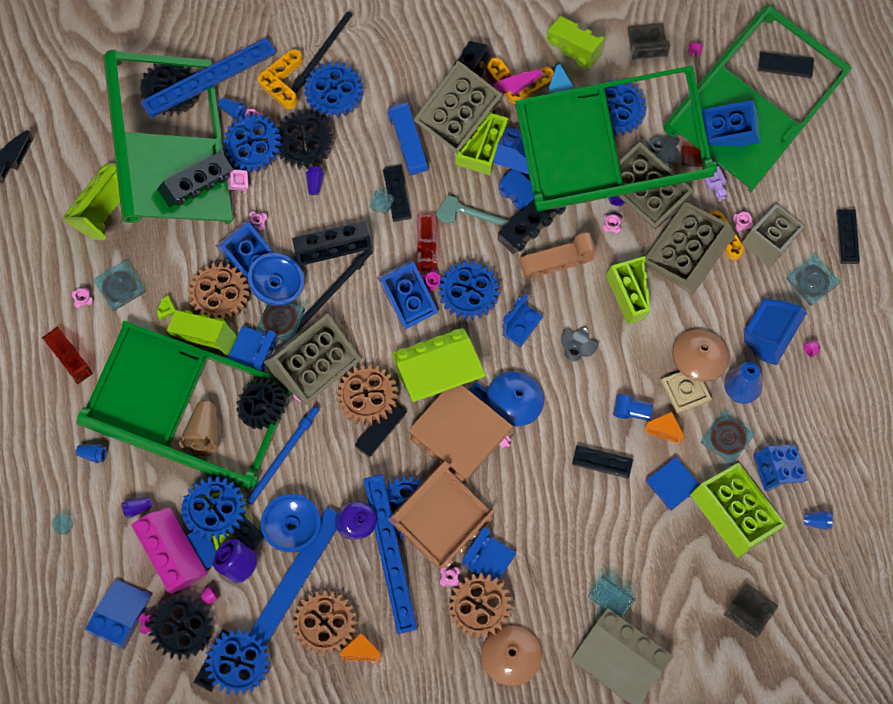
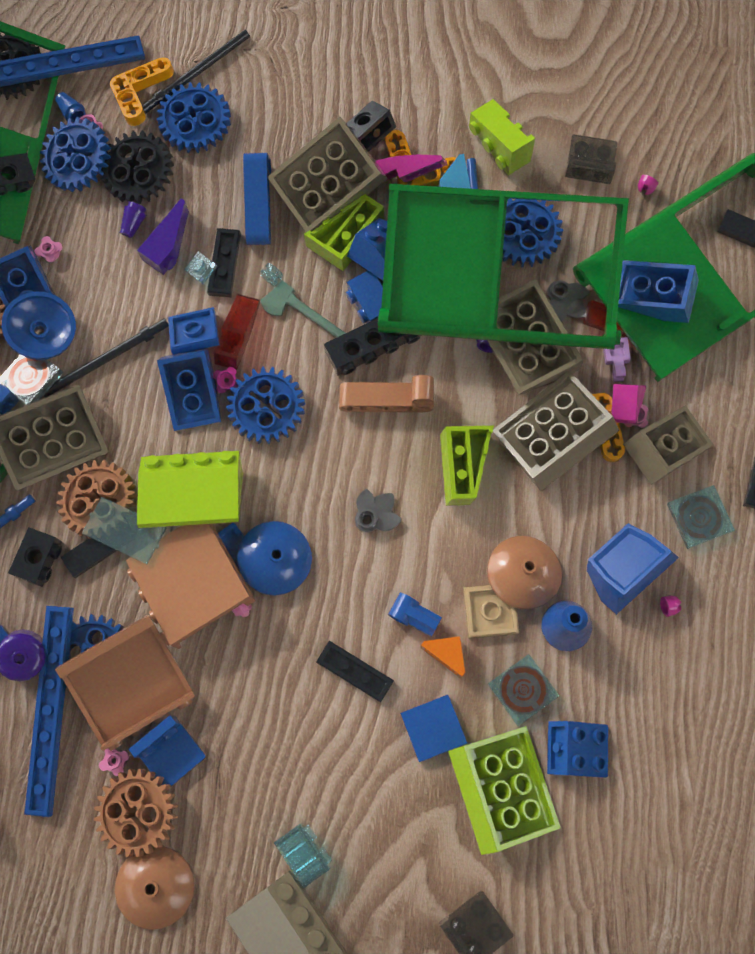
camera: 25 degrees right, 5 degrees up
(238, 180) = (43, 194): bright pink plate -> none
(331, 243) = (121, 300): black brick -> none
(337, 438) = (32, 544): none -> black brick
(346, 194) = (164, 243): none -> dark purple slope
(394, 250) = (193, 331): none -> blue tile
(399, 409) = (119, 530): none -> clear light blue piece
(437, 192) = (271, 274): none -> clear light blue bush
(520, 322) = (313, 462): blue bracket -> none
(612, 219) = (477, 370): bright pink plate -> none
(735, 212) = (627, 402): none -> dark pink slope
(820, 520) = (605, 837): blue cone -> none

